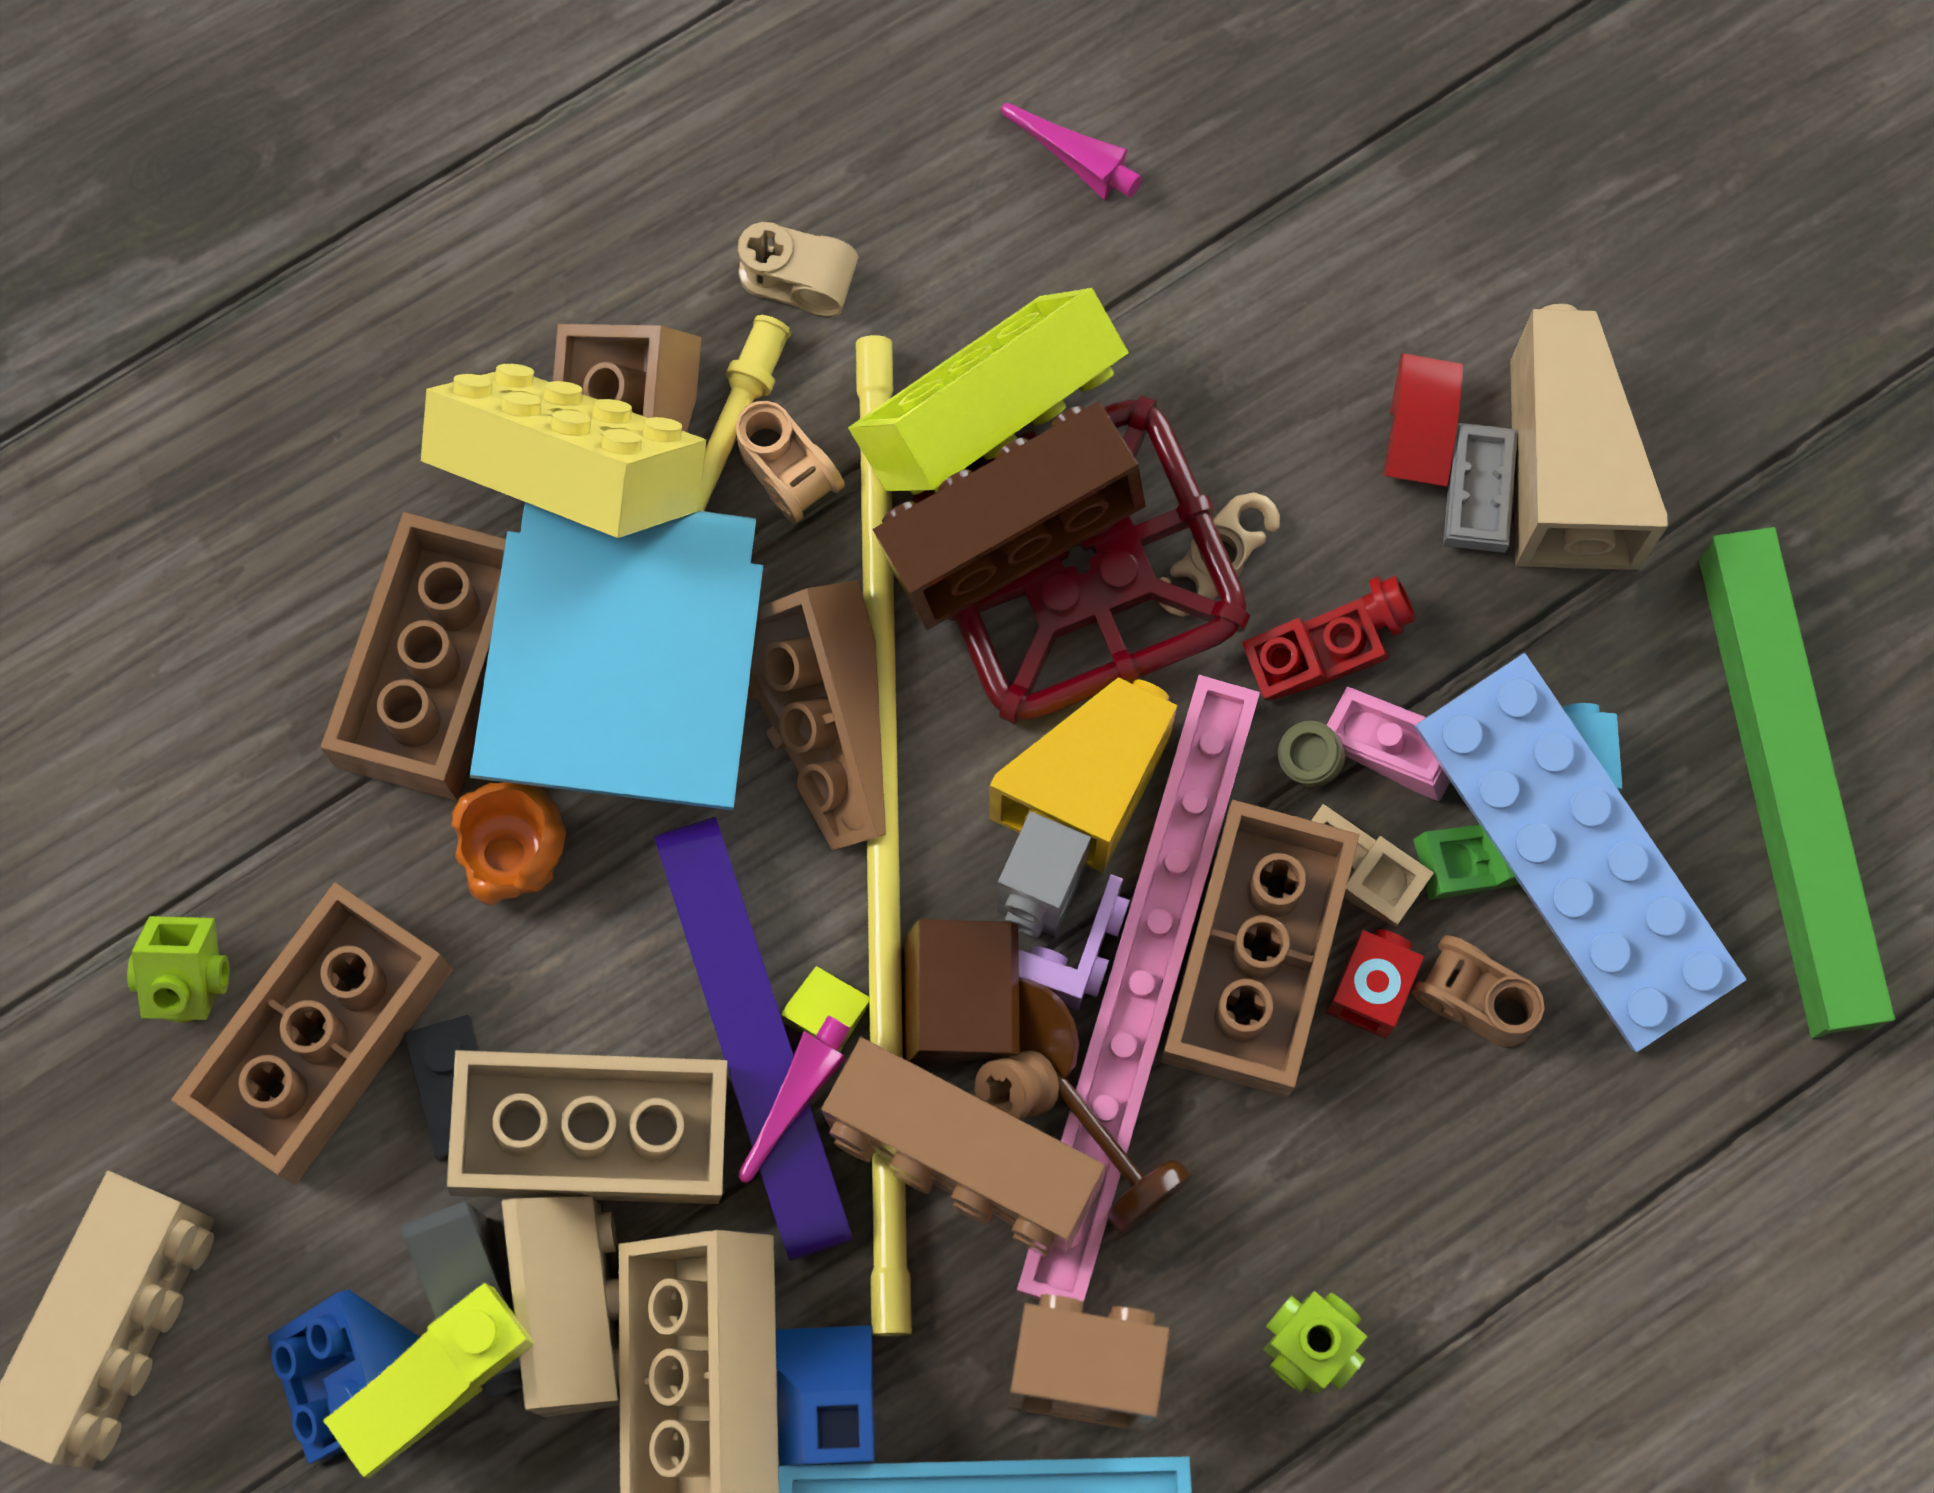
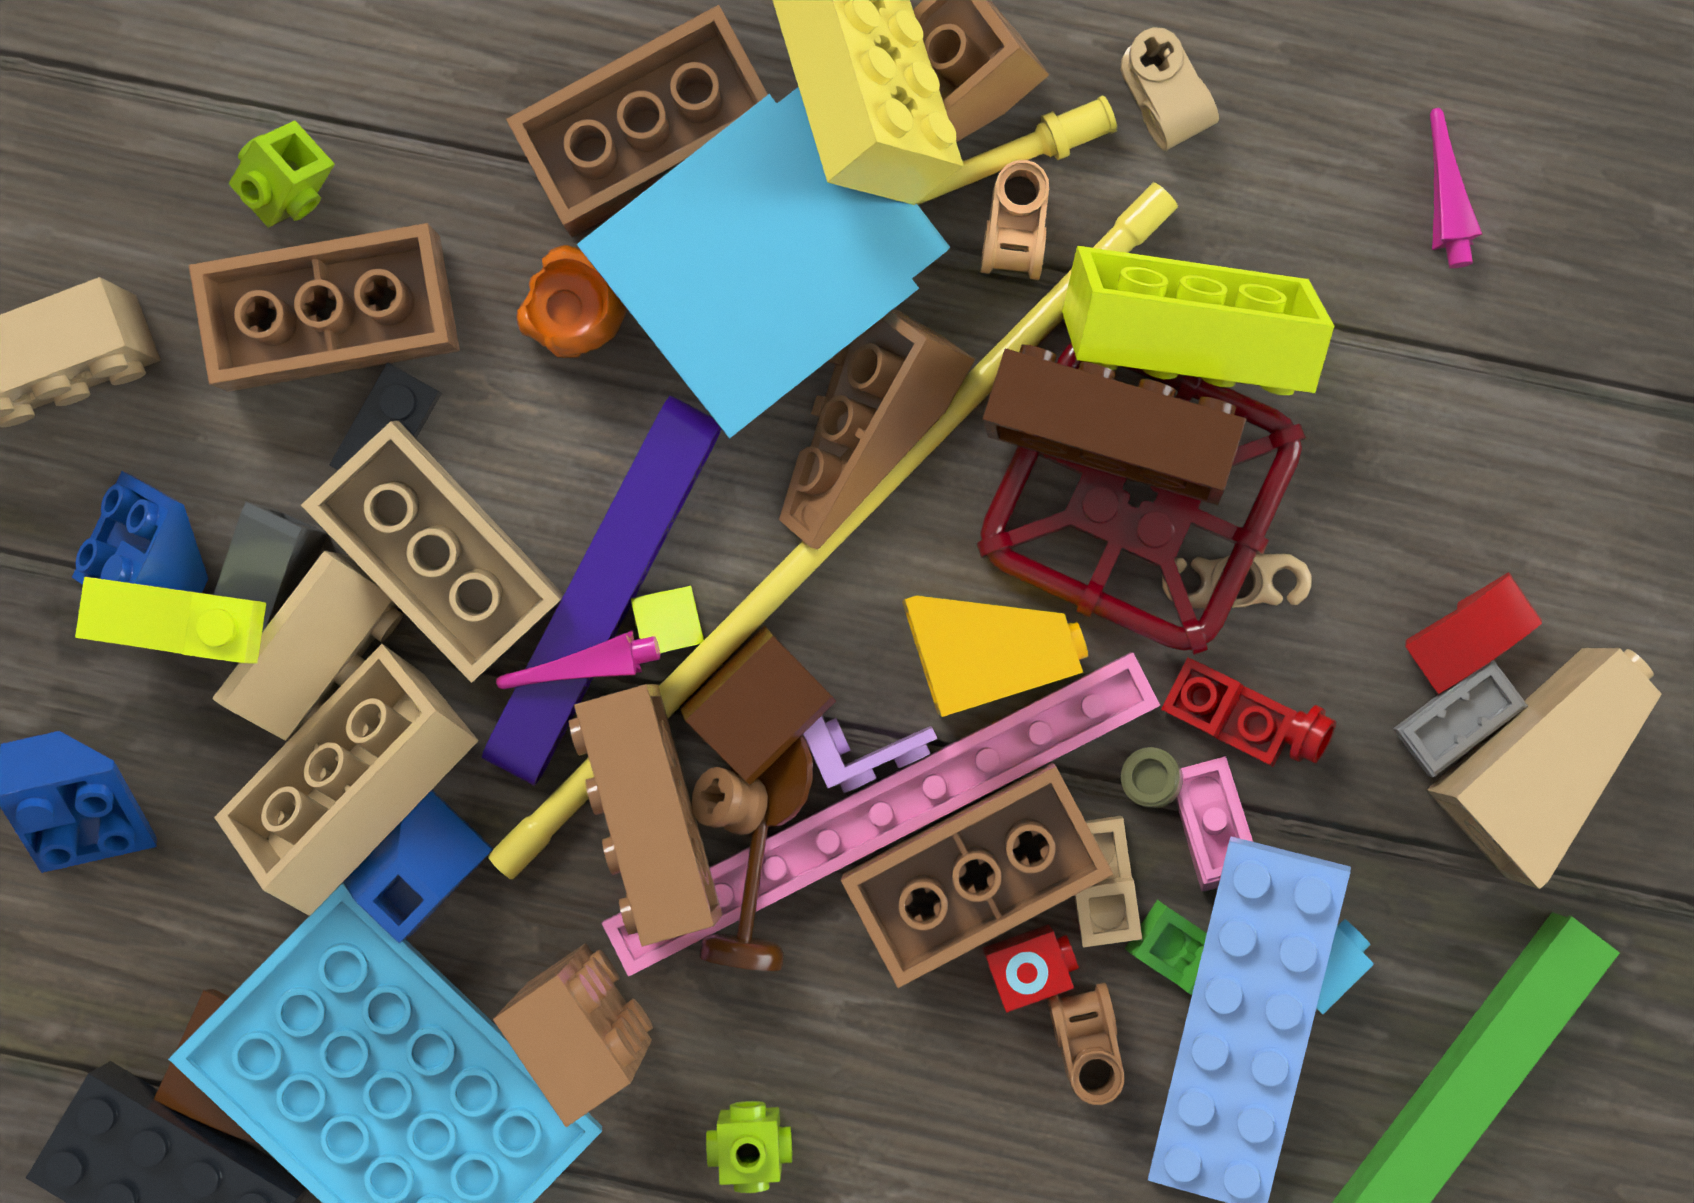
camera: 45 degrees right, 15 degrees up
(1042, 875) = (884, 685): light grey brick -> none

